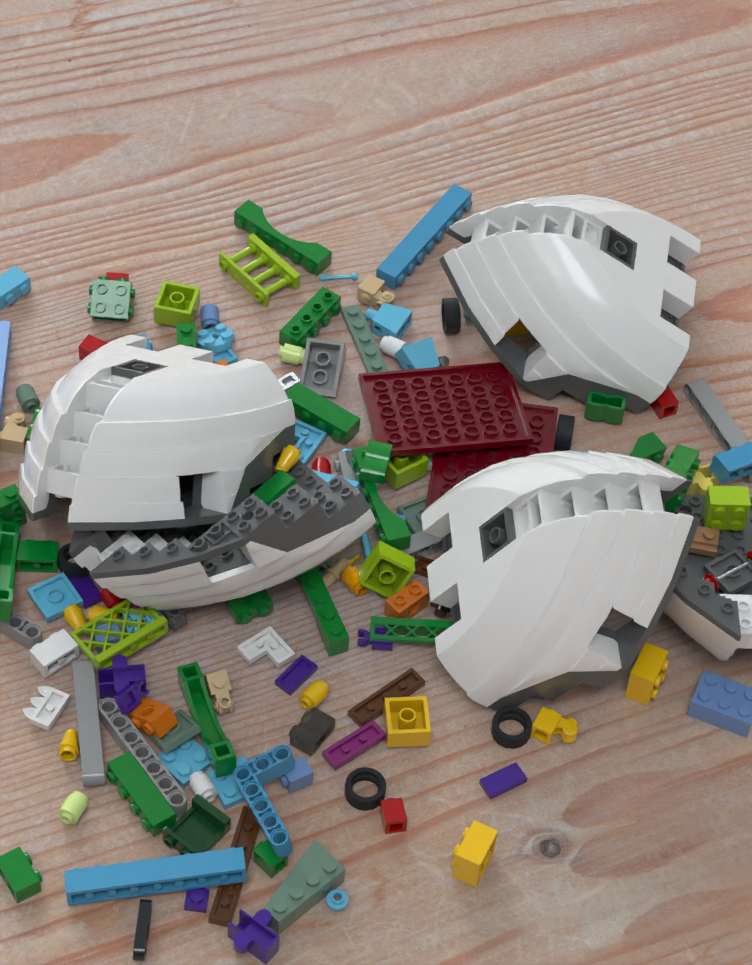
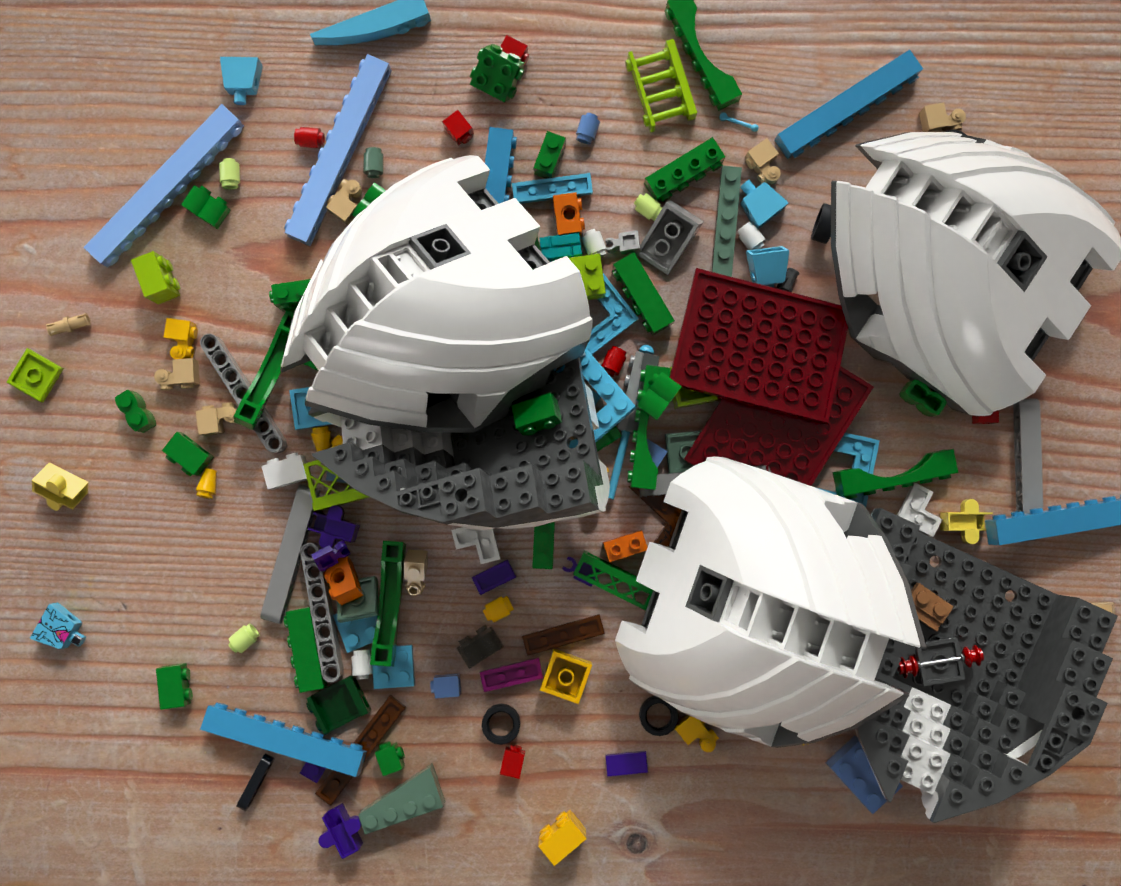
camera: 30 degrees right, 35 degrees up
(48, 708) = (261, 525): white plate -> none
(69, 746) = (264, 572): yellow cone -> none
(176, 303) = (560, 102): lime brick -> none
(216, 338) = (578, 150): medium azure plate -> none
(258, 773) = (401, 713): dark azure beam -> none
(289, 457) = (567, 374): yellow cone -> none
(337, 905) = (434, 816): medium azure plate -> none
(386, 569) = (622, 514): lime brick -> none
(564, 432) = (867, 414): black tyre -> none
(684, 462) = (945, 529): green wedge -> none
(726, 507) = (971, 593): lime brick -> none

